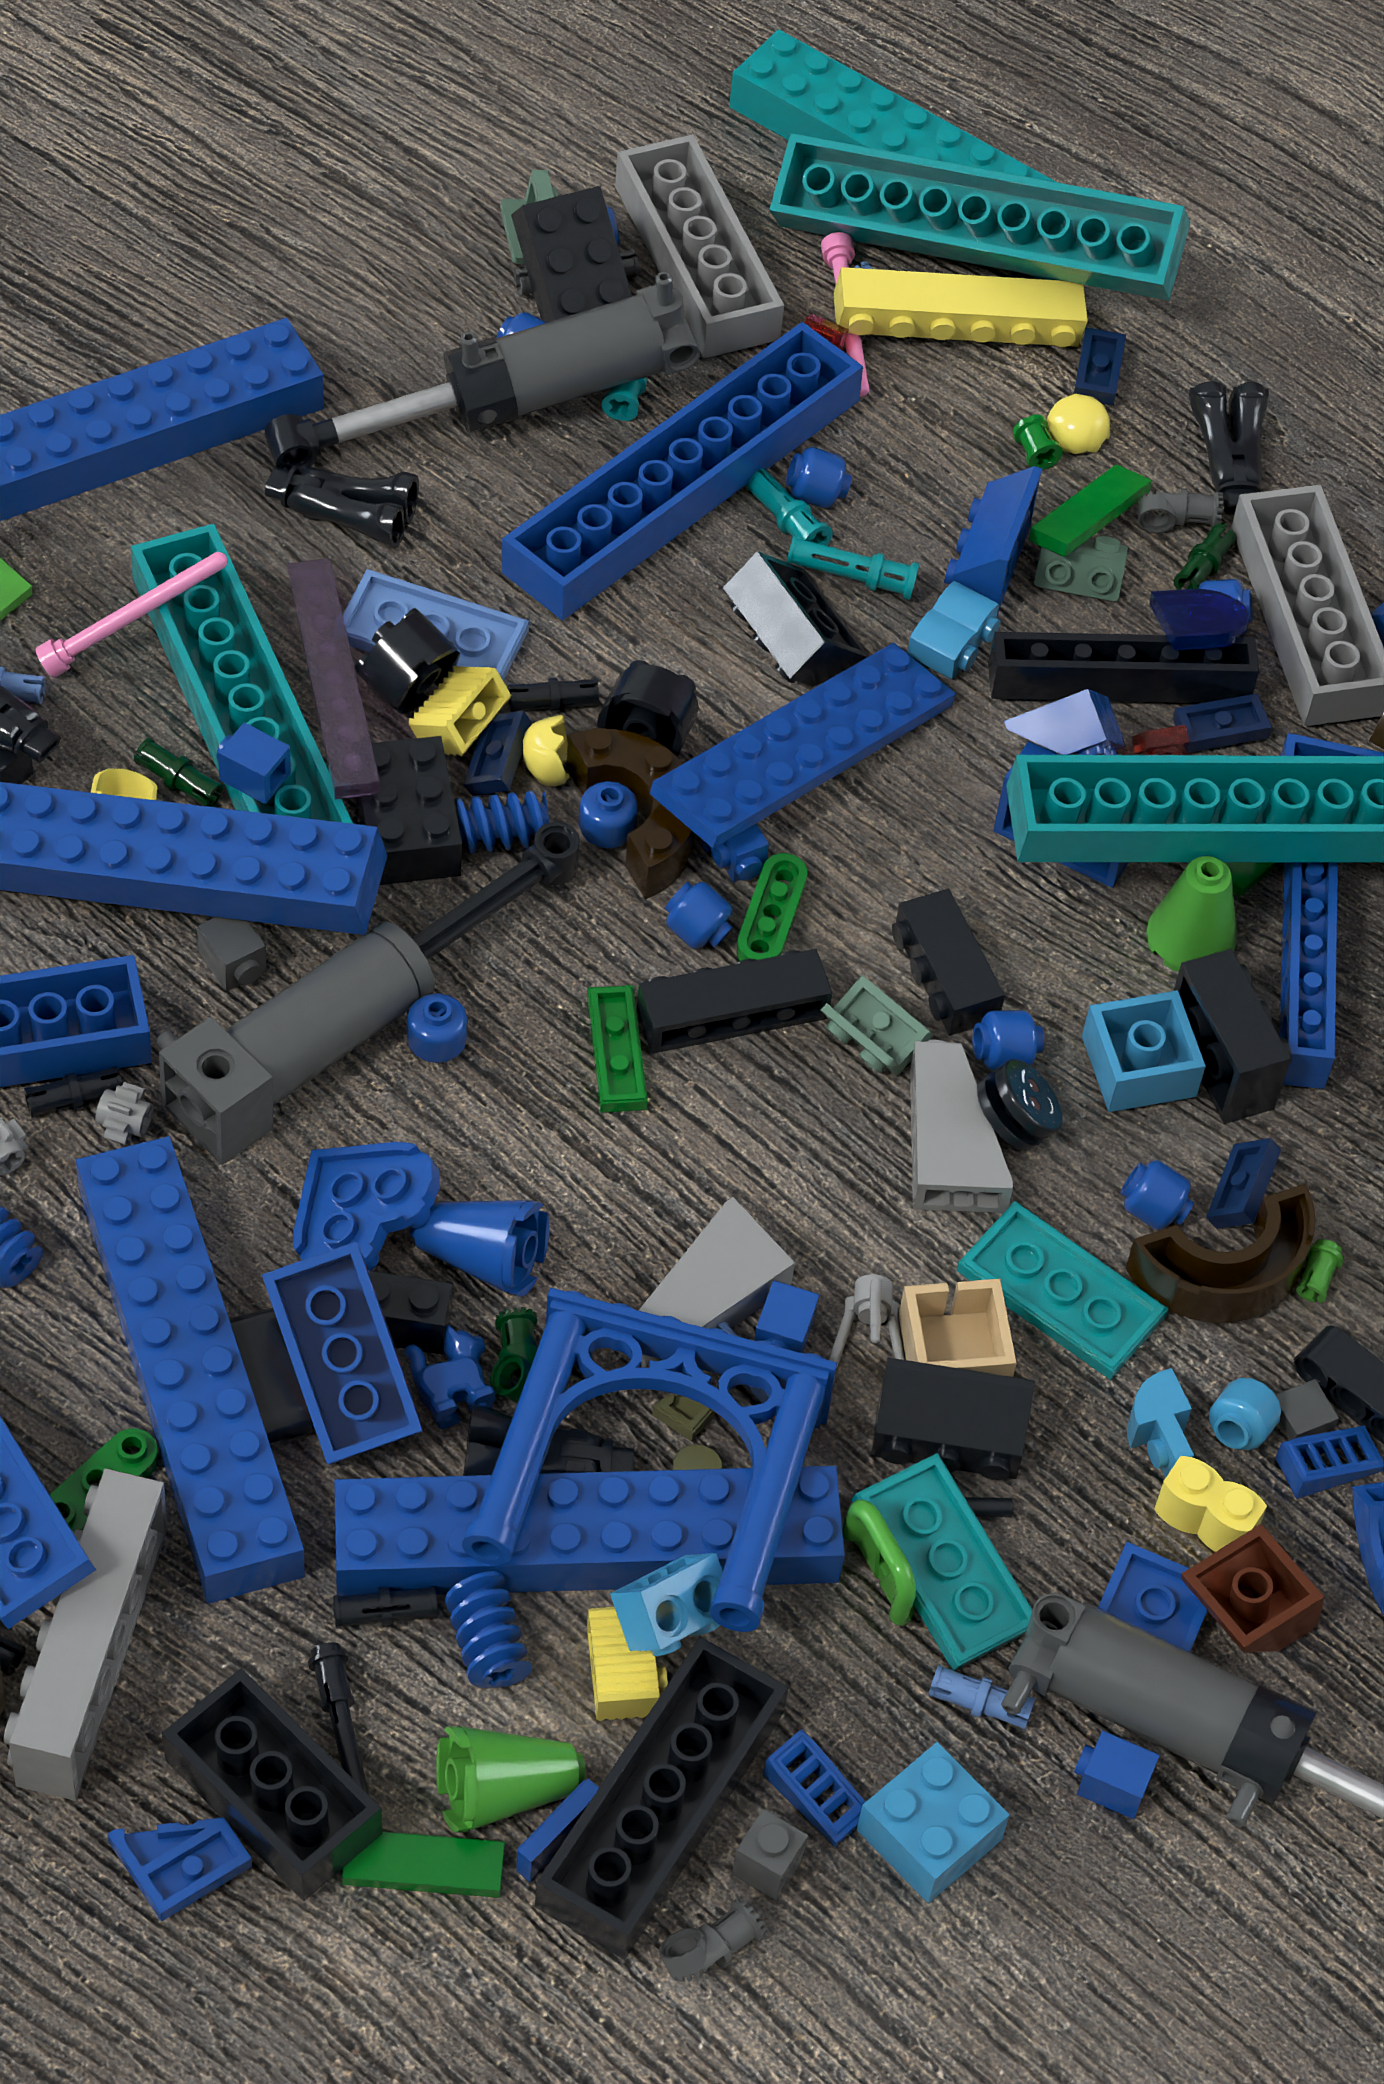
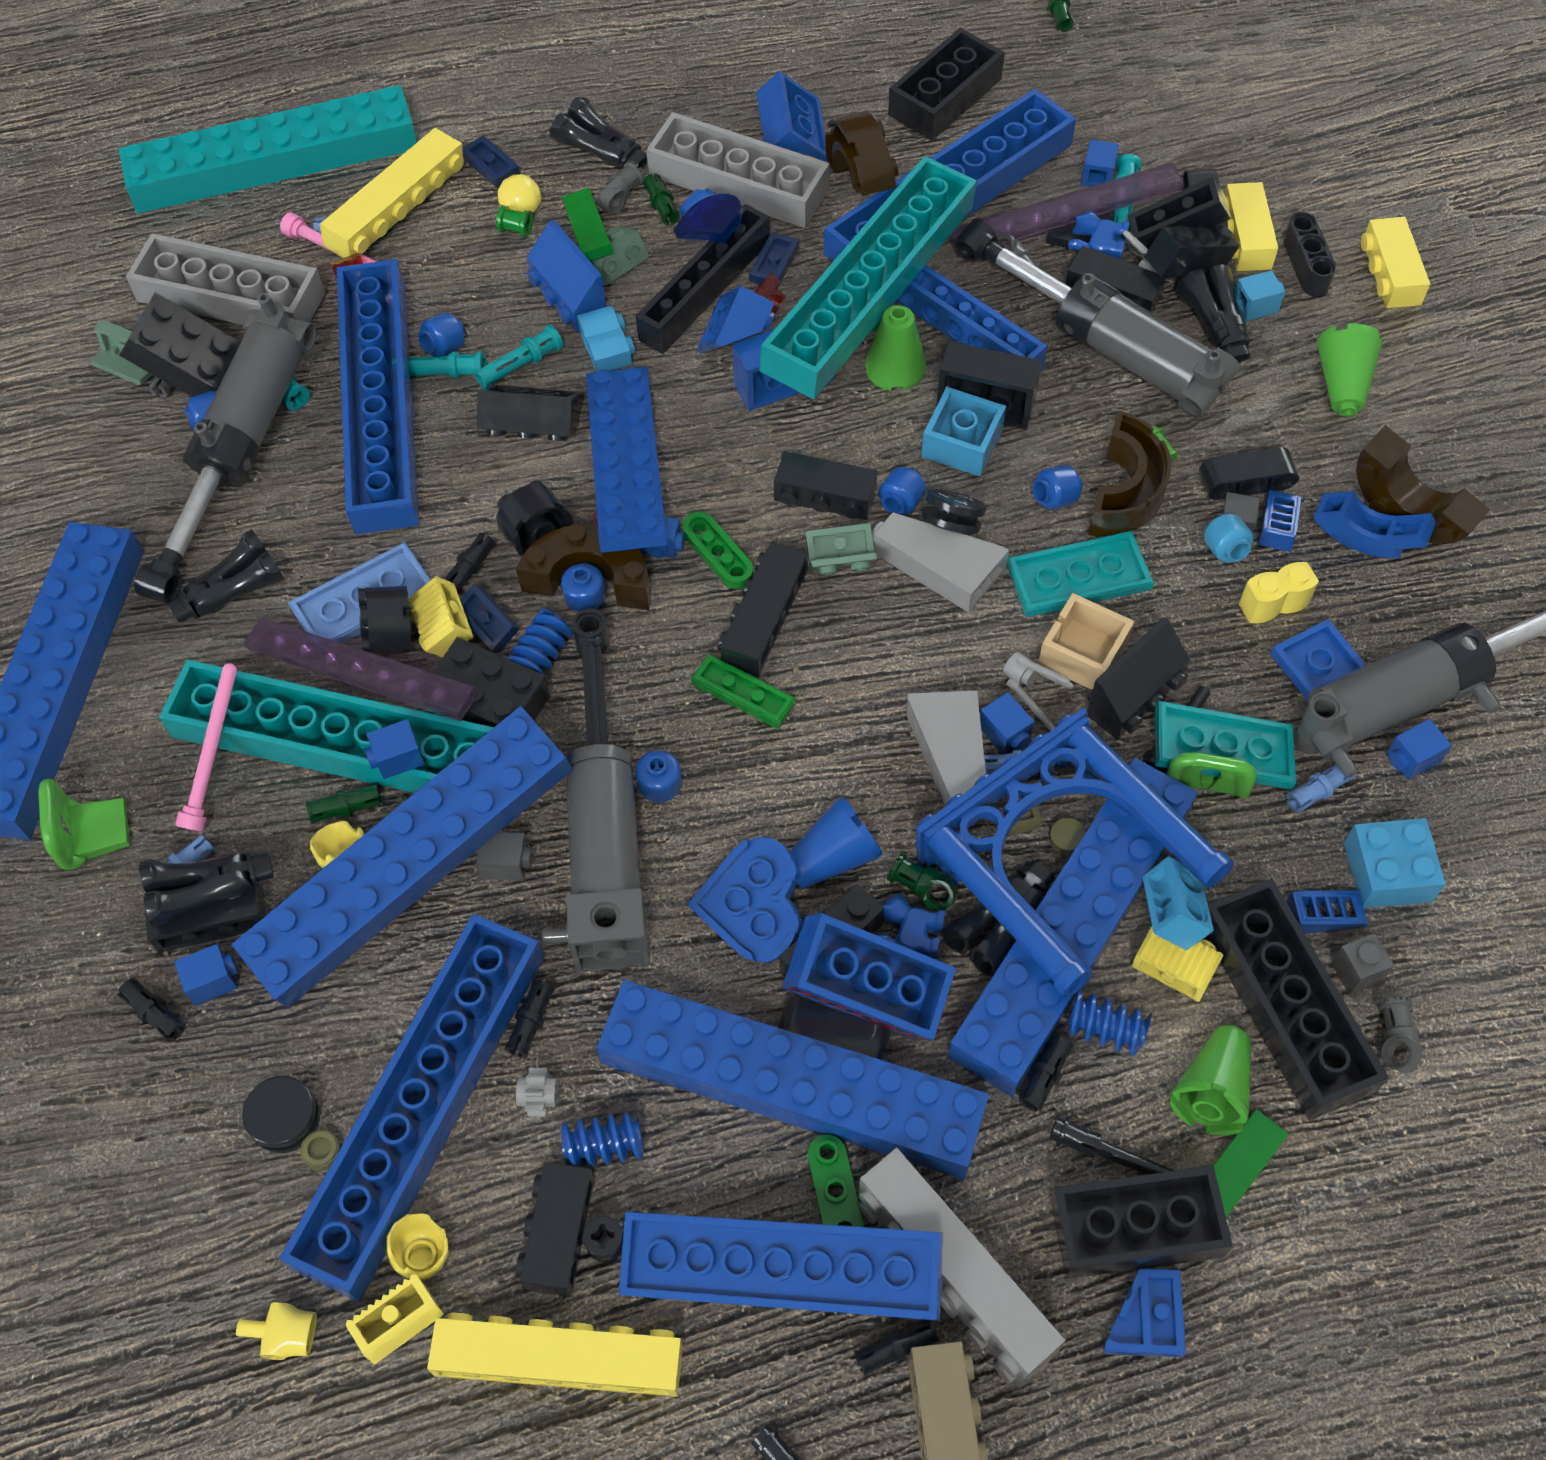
camera: 45 degrees left, 5 degrees up
(124, 1113) = (574, 997): light grey gear -> none
(545, 1841) = (1271, 1072): blue tile -> none
(546, 750) = (511, 590): light yellow hair -> none
(699, 915) = (691, 587): blue head -> none
(981, 216) = (350, 138): teal brick -> none
(1160, 1419) = (1199, 580): dark azure brick -> none
(1243, 1183) = (1080, 443): dark blue plate -> none
(1256, 1592) = (1356, 603): copper slope -> none

